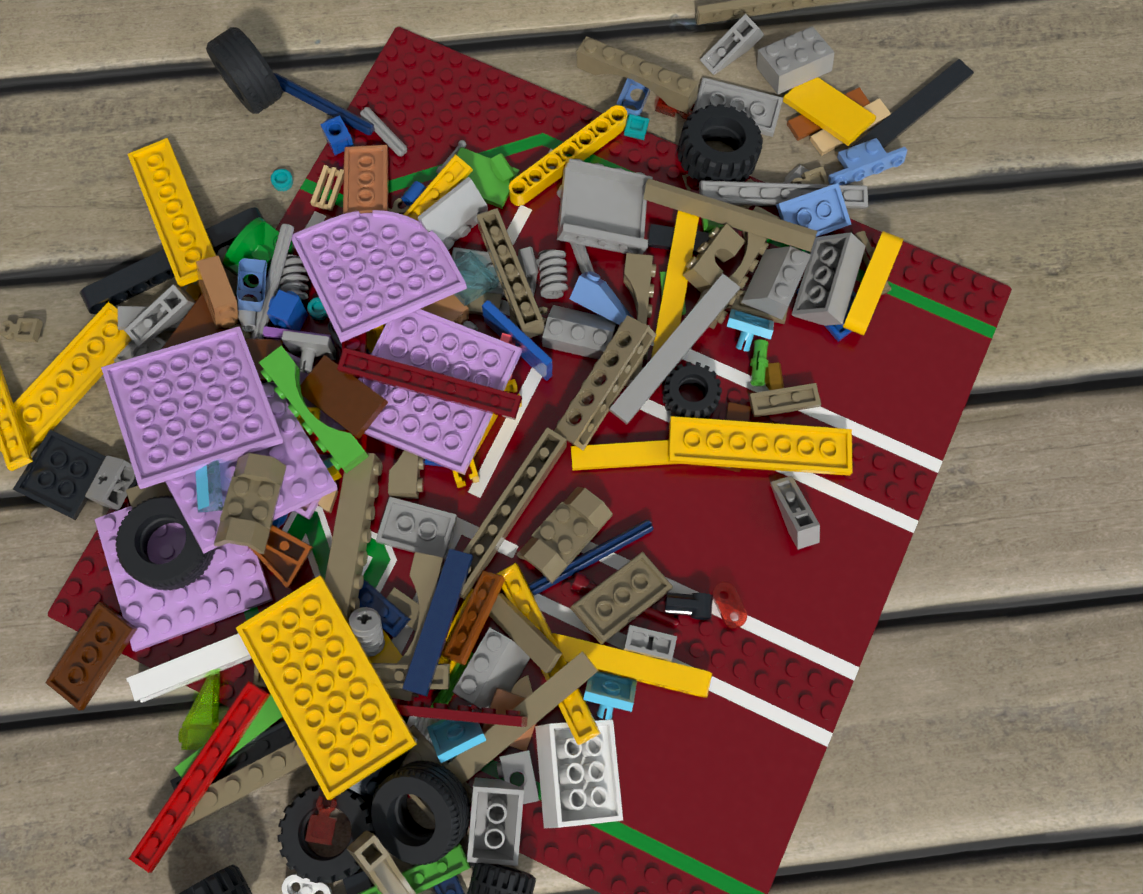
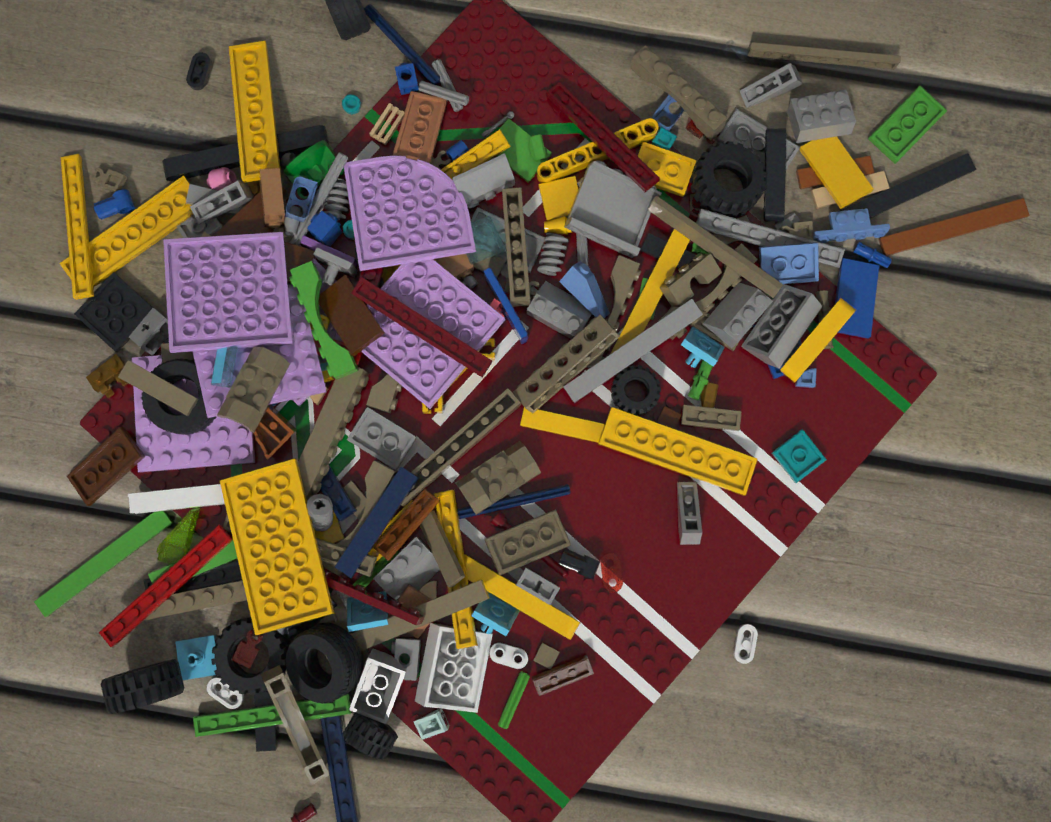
camera: 20 degrees right, 10 degrees up
(40, 351) = (119, 203): none -> blue piece
(68, 547) = (106, 374): none -> pearl gold plate
(99, 190) = (199, 72): none -> black plate
(113, 776) = (103, 562): none -> bright green tile
(134, 536) = (158, 388): none -> dark tan tile
(150, 292) = (220, 178): none -> bright pink head
(260, 857) = (195, 657): none -> medium azure tile
(382, 138) = (443, 93): none -> light grey axle
(527, 261) = (534, 238): light grey piece -> none
(540, 214) = (558, 197): none -> yellow tile
(549, 242) = (556, 226): none -> yellow cone
(571, 136) = (603, 137): none -> dark red tile
(572, 851) = (432, 724): none -> light aqua slope
(640, 739) = (508, 656): none -> white plate
(646, 154) = (669, 166): none -> yellow plate
(662, 791) = (513, 700): none -> bright green axle
(684, 726) = (546, 656): none -> dark tan tile
(711, 743) = (562, 675): none -> reddish brown tile
(773, 147) = (775, 168): none -> black beam
(875, 330) = (807, 379): none -> medium blue tile
(886, 48) = (907, 124): none -> bright green tile
(895, 415) = (799, 456): none -> teal tile
(896, 216) = (858, 288): none -> blue tile
(897, 184) = (872, 255): none -> blue axle
(909, 643) = (746, 643): none -> white plate
(971, 136) = (954, 227): none -> dark orange tile

